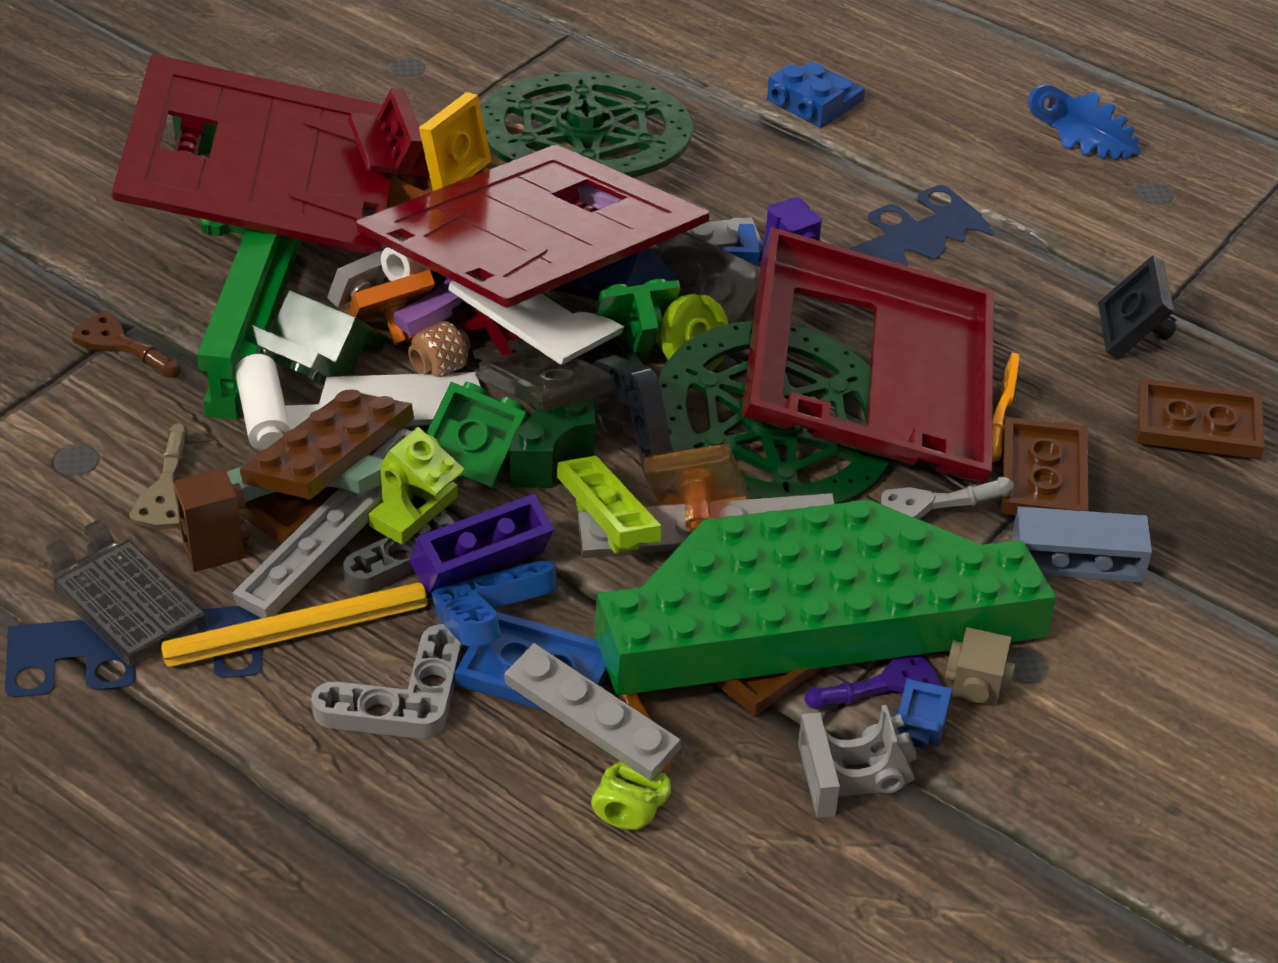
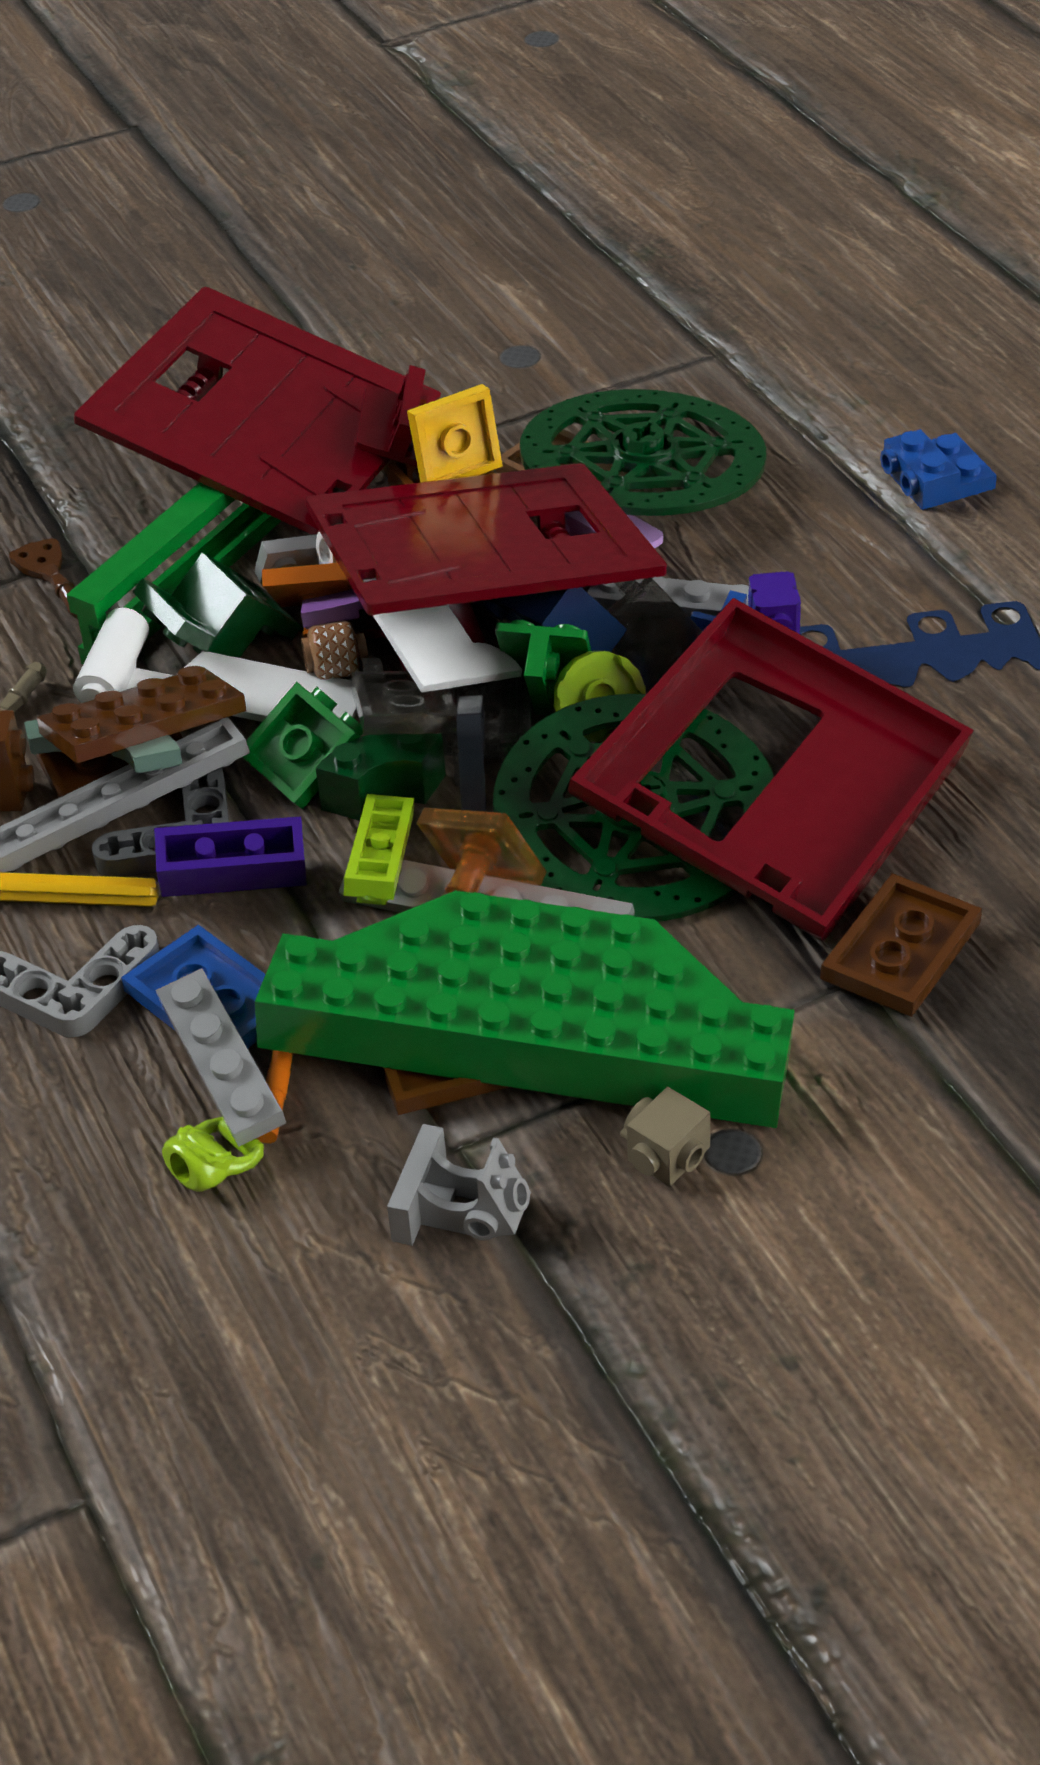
camera: 30 degrees right, 0 degrees up
(412, 469) = (191, 766): lime tile -> none
(469, 604) = (172, 912): blue beam -> none
(891, 678) = (566, 1120): dark purple piece -> none
(924, 712) = (567, 1166): blue bracket -> none
(925, 500) = (722, 938): light grey piece -> none
(1005, 401) = (921, 844): light orange piece -> none
(1085, 543) = (880, 1037): sand blue brick -> none

